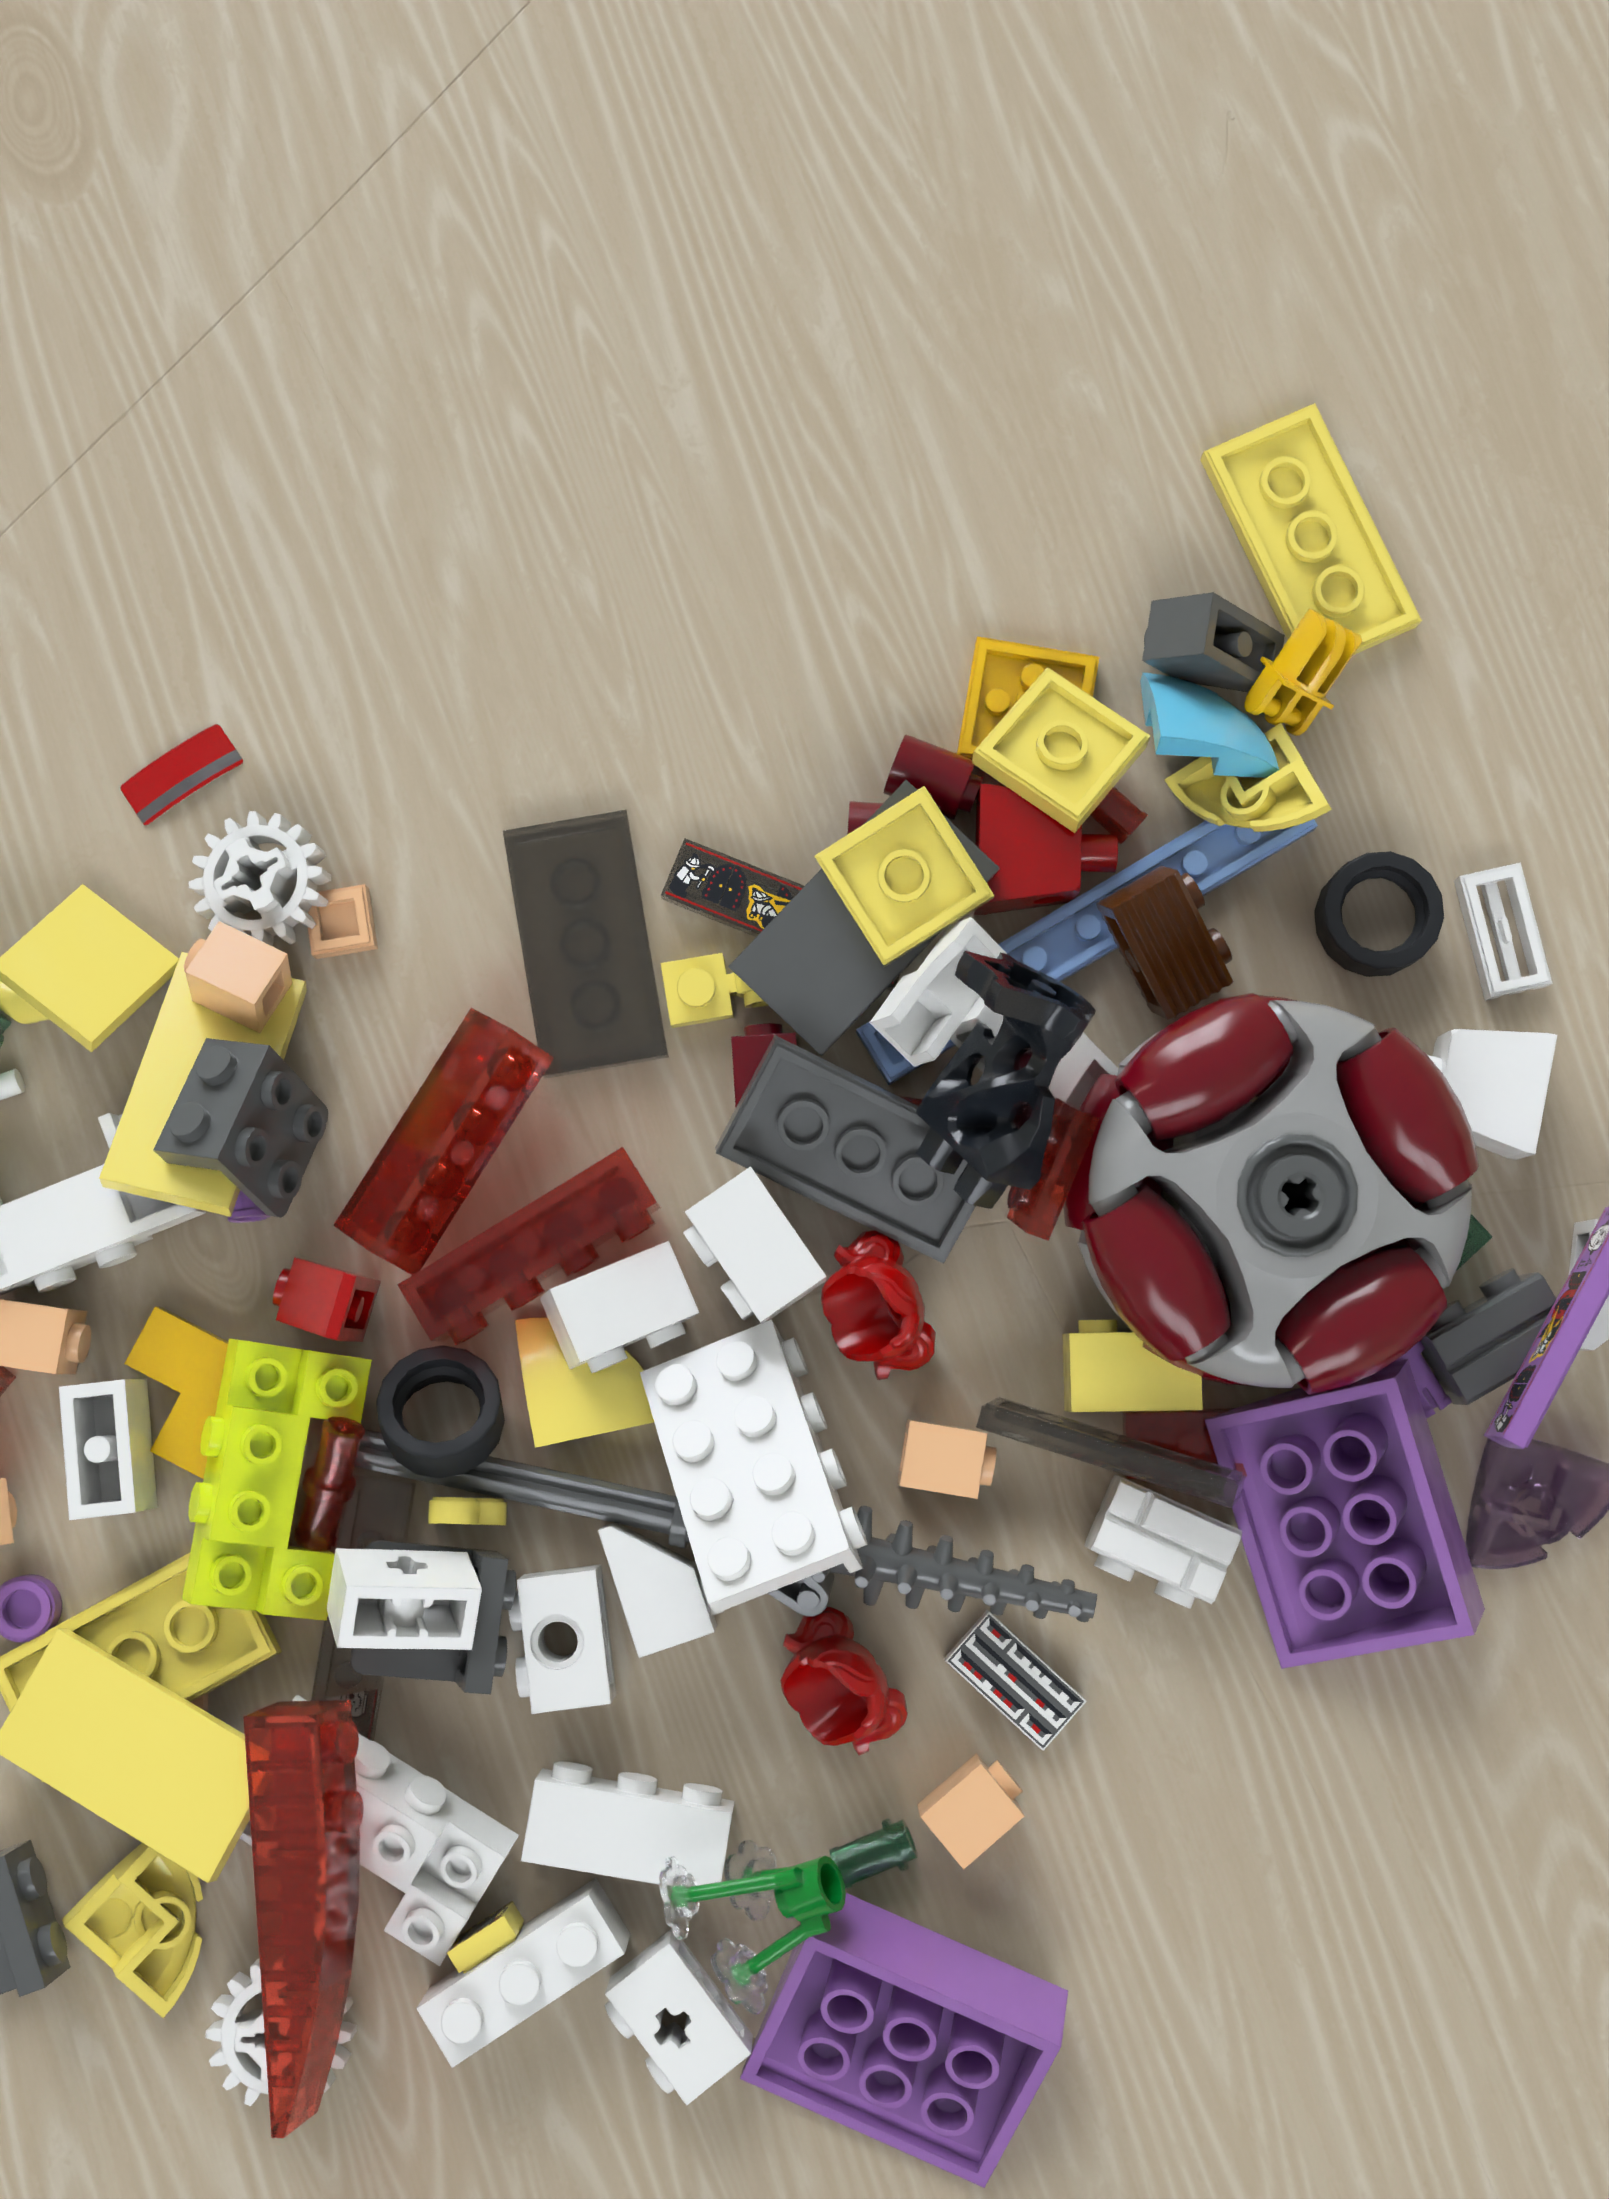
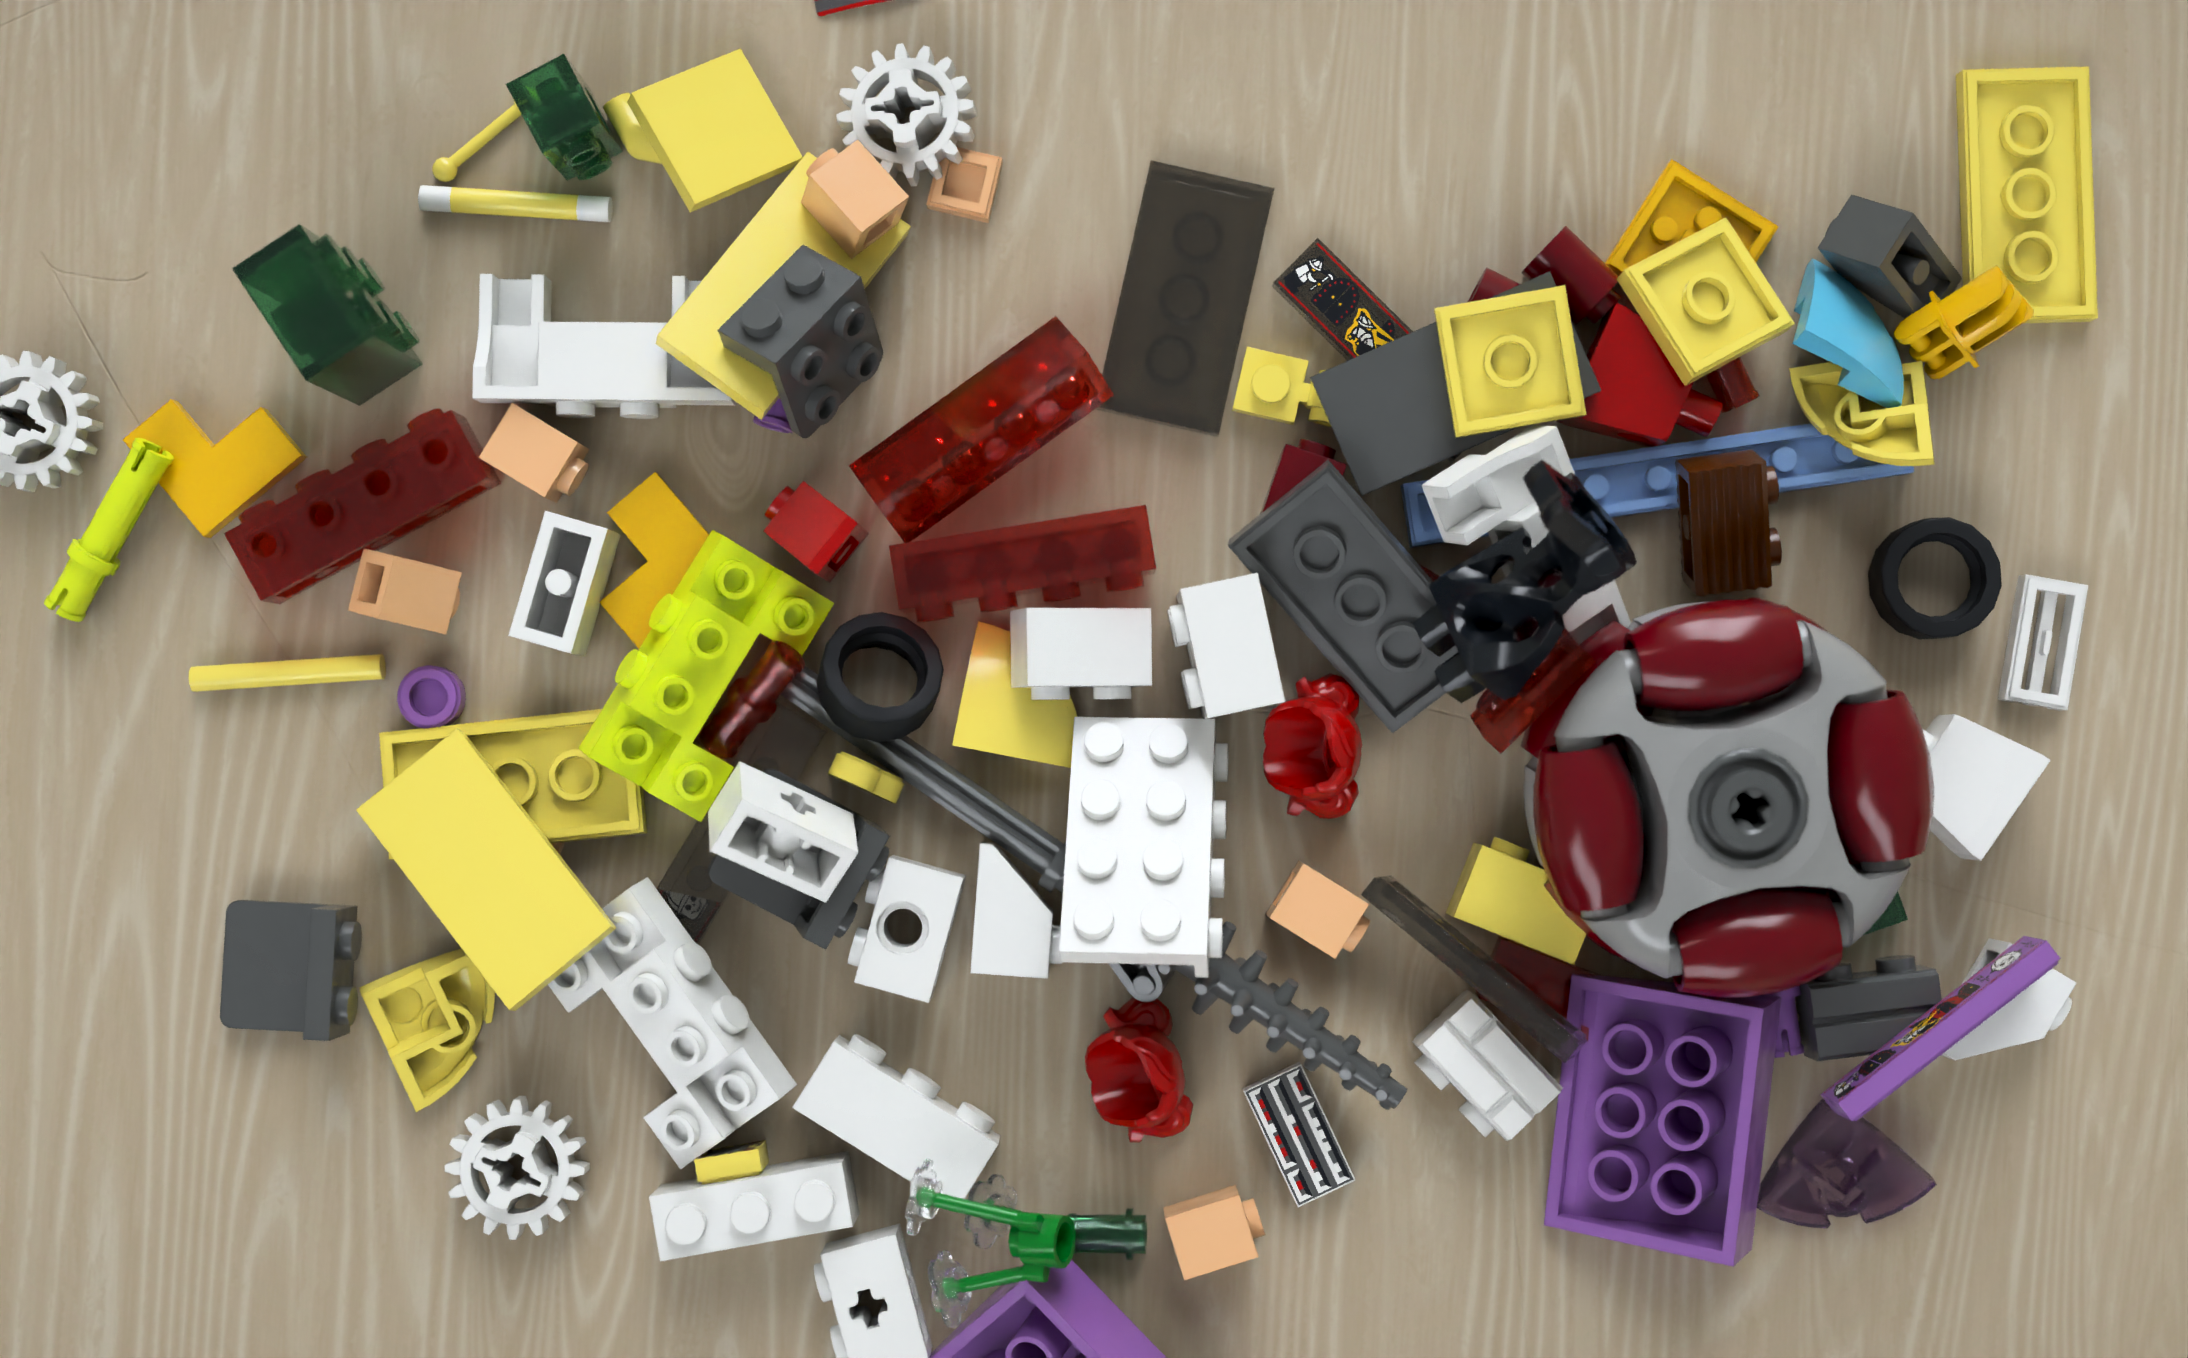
camera: 20 degrees right, 5 degrees up
(305, 1890) = (597, 1049): clear red slope -> none

